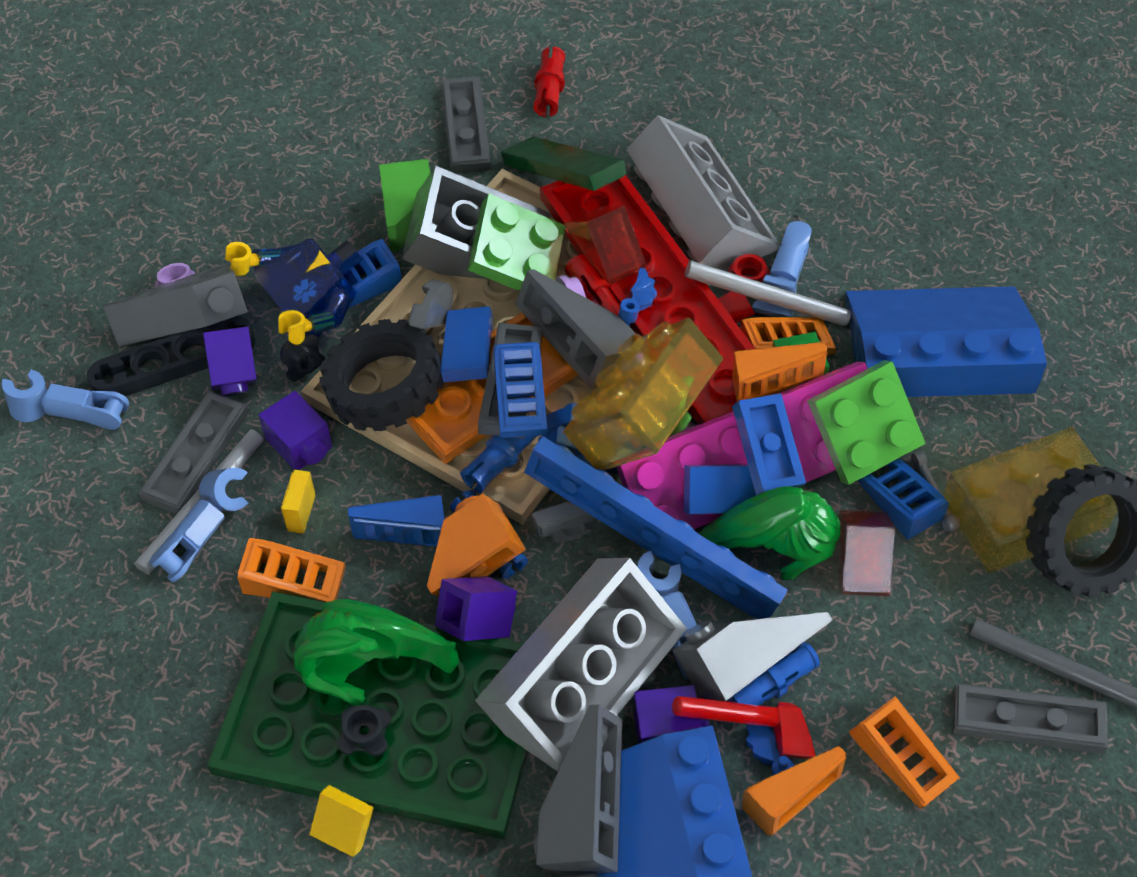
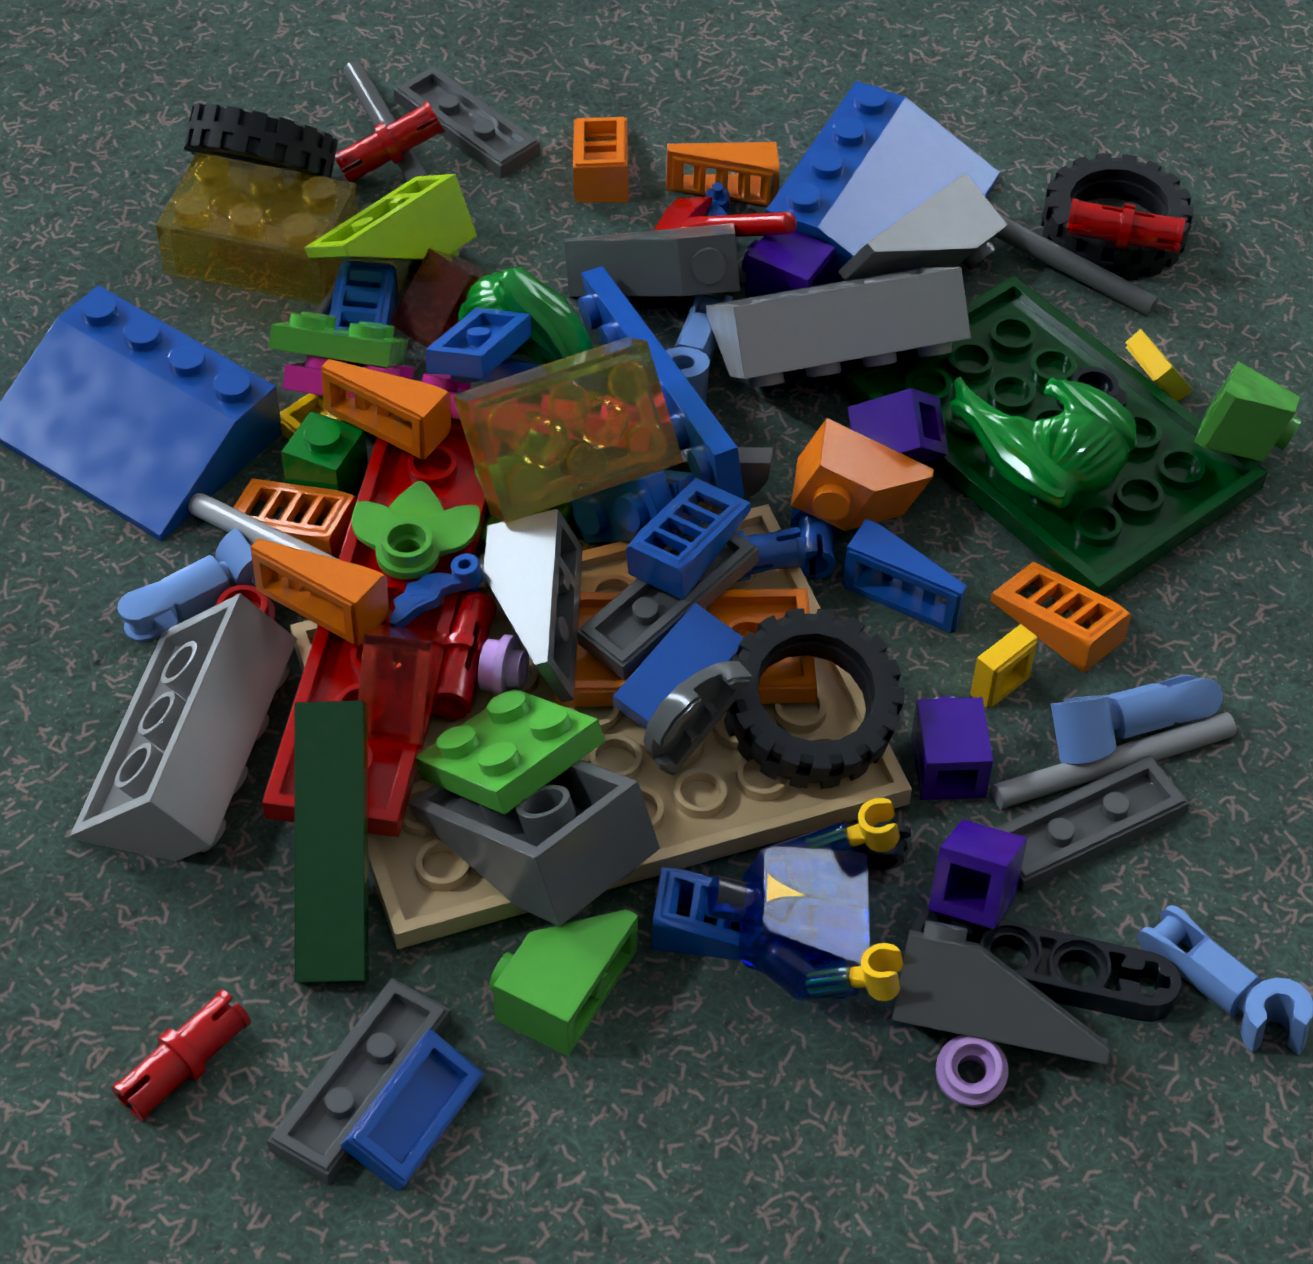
camera: 145 degrees left, 5 degrees down
(242, 785) = (1249, 416): none -> bright green slope
(427, 120) = (412, 1110): none -> blue tile
(678, 244) = (322, 588): none -> orange slope
(700, 308) = (414, 531): none -> bright green plate
(933, 535) = (403, 224): none -> lime slope
(1039, 631) = (388, 142): none -> red pin

